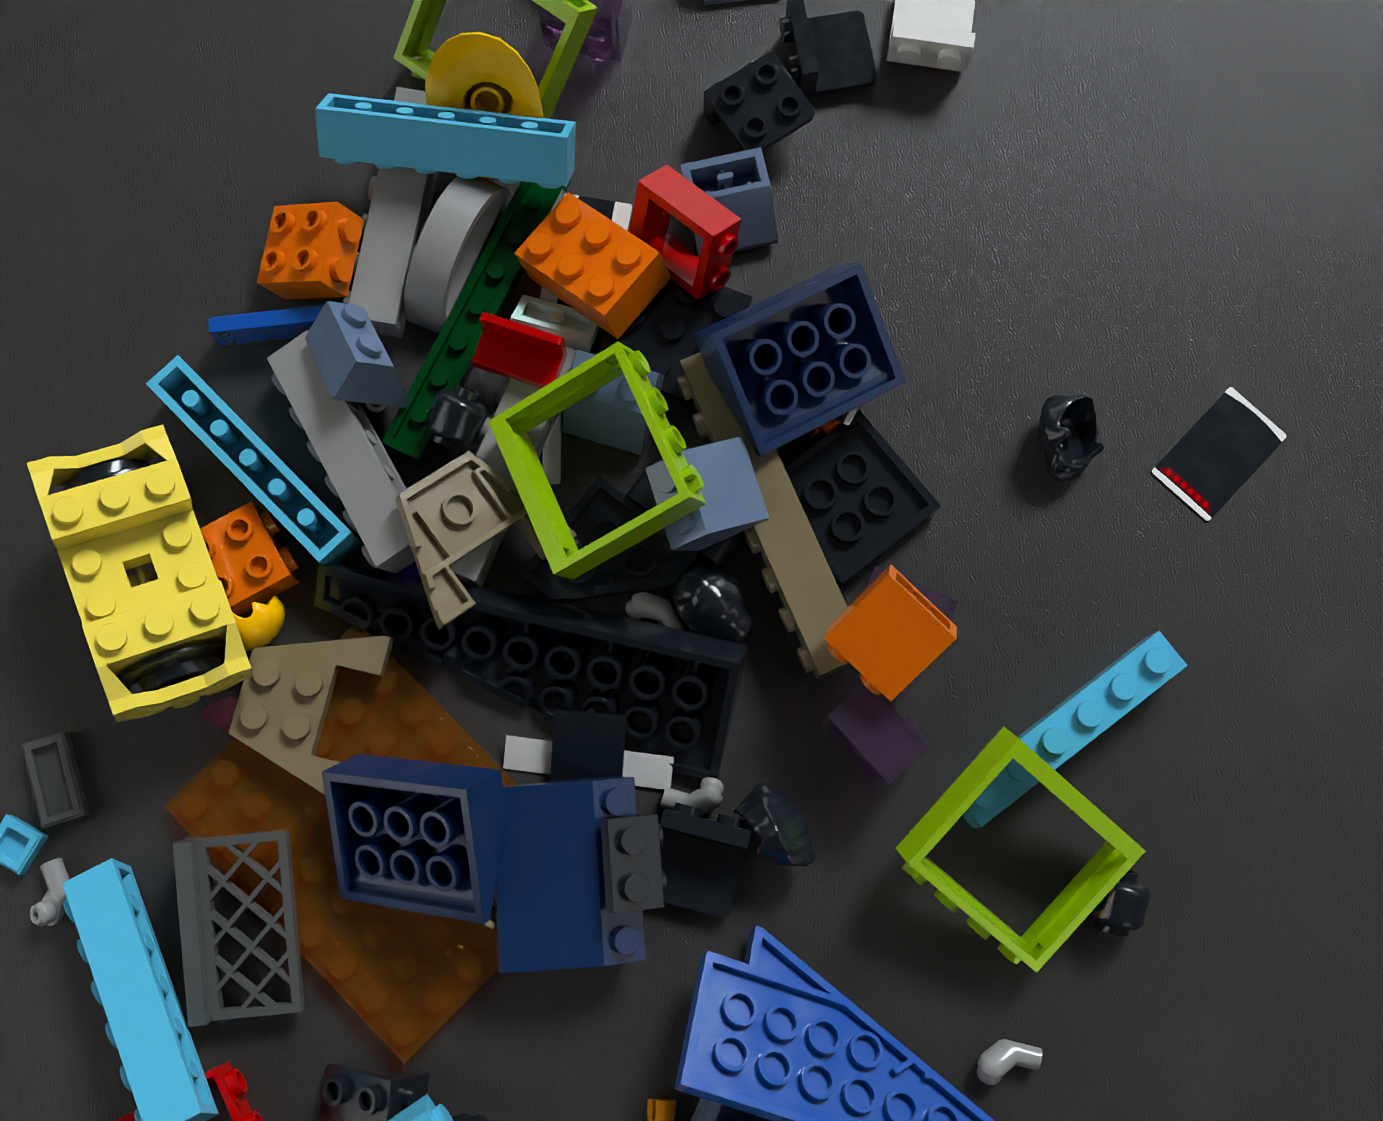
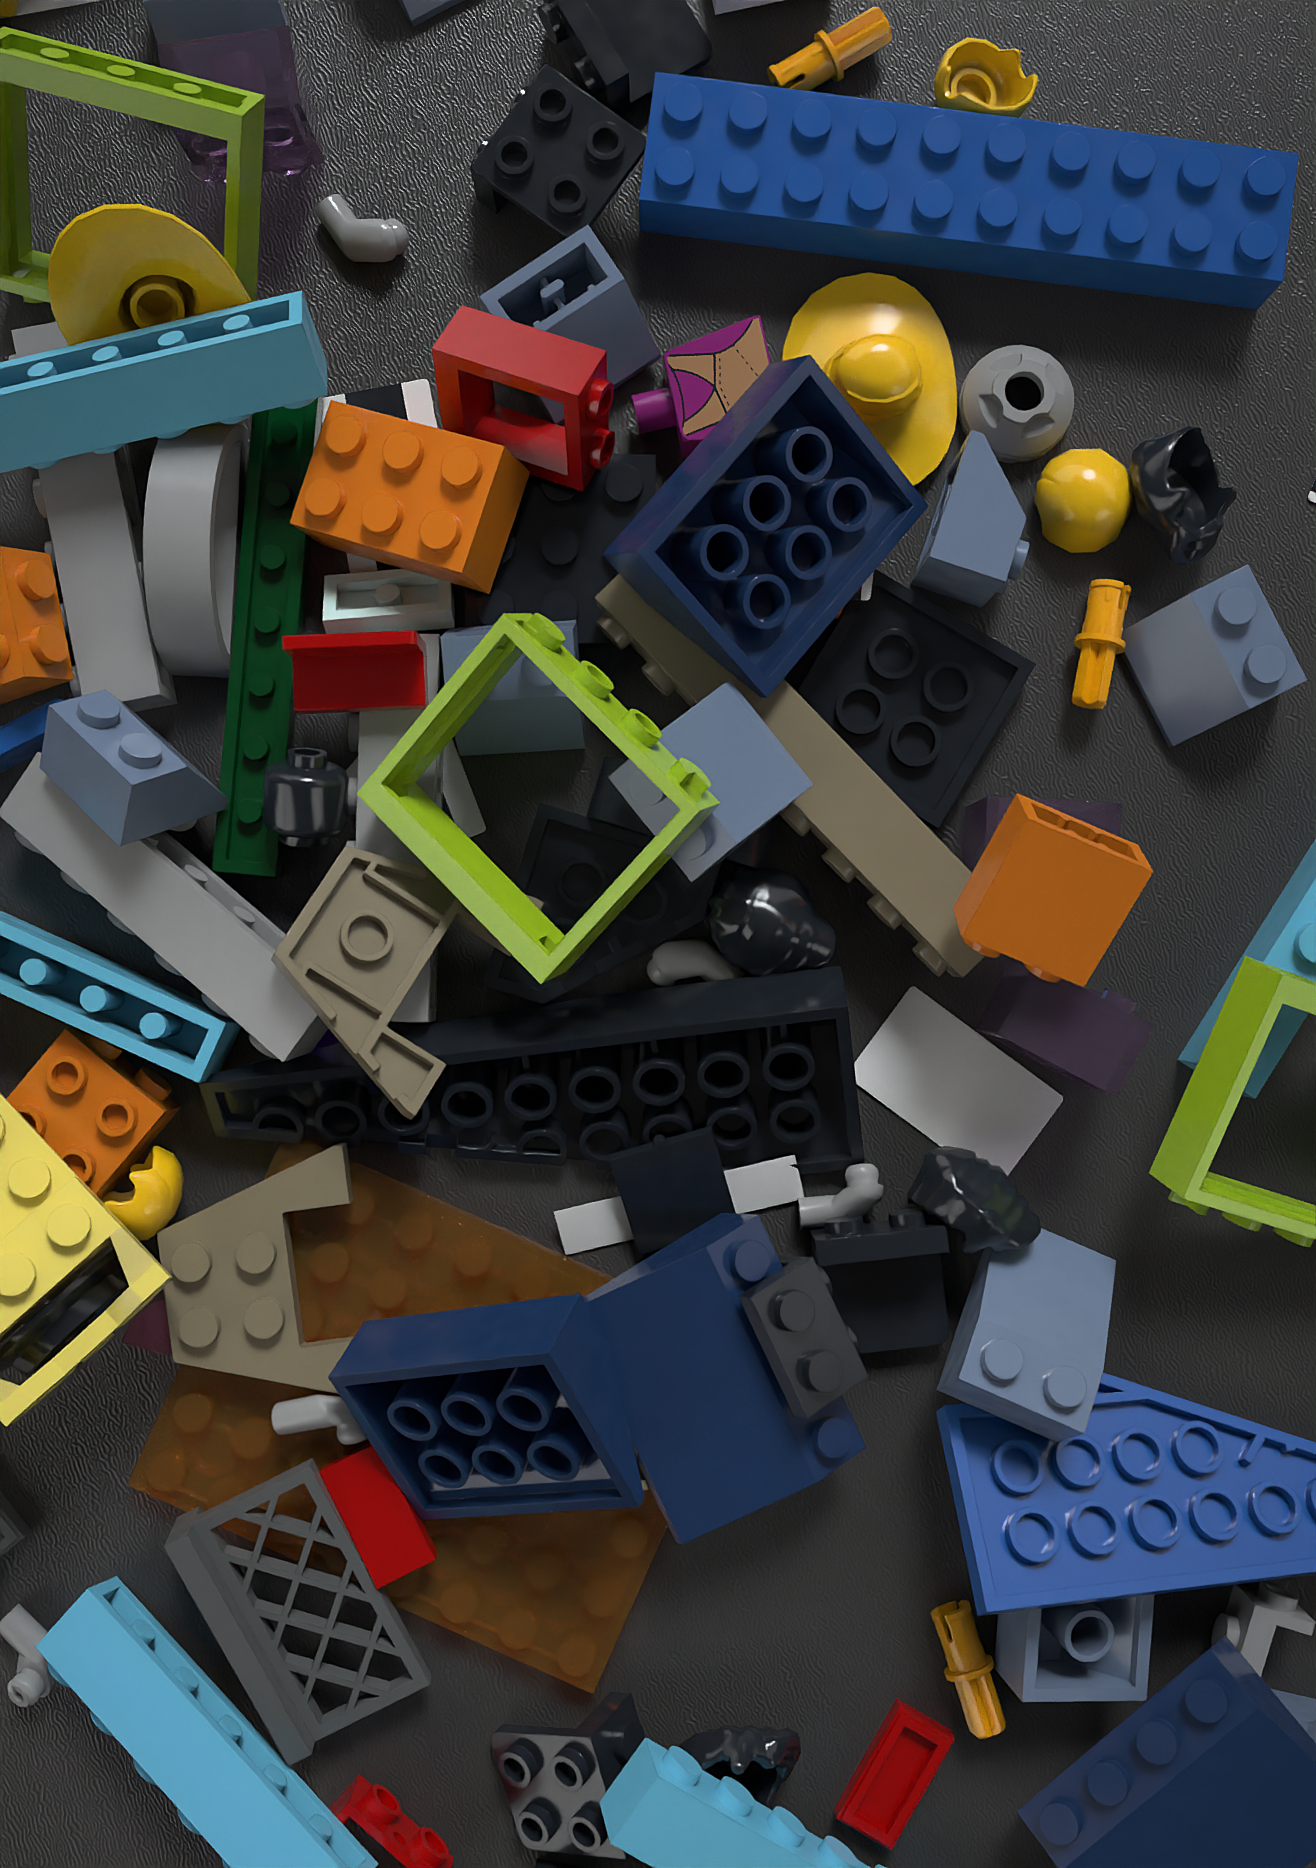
camera: 20 degrees left, 10 degrees up
(303, 800) = (316, 1413): none -> light grey arm
(314, 884) = (377, 1516): none -> red tile
(625, 111) = (361, 238): none -> light grey arm
(782, 927) = (1034, 1336): none -> sand blue slope
(795, 752) = (954, 1083): none -> white sticker
(796, 261) = (703, 382): none -> torso
(914, 295) = (887, 361): none -> yellow hat
(926, 412) = (974, 530): none -> sand blue slope
(946, 106) = (833, 52): none -> light orange axle
(975, 362) = (1015, 433): none -> light grey piece
(986, 509) = (1100, 641): none -> light orange axle
(999, 212) = (966, 191): none -> blue brick
(1007, 419) = (1083, 499): none -> yellow hair
(1030, 156) = (983, 79): none -> yellow hair
(1052, 542) = (1210, 656): none -> sand blue slope

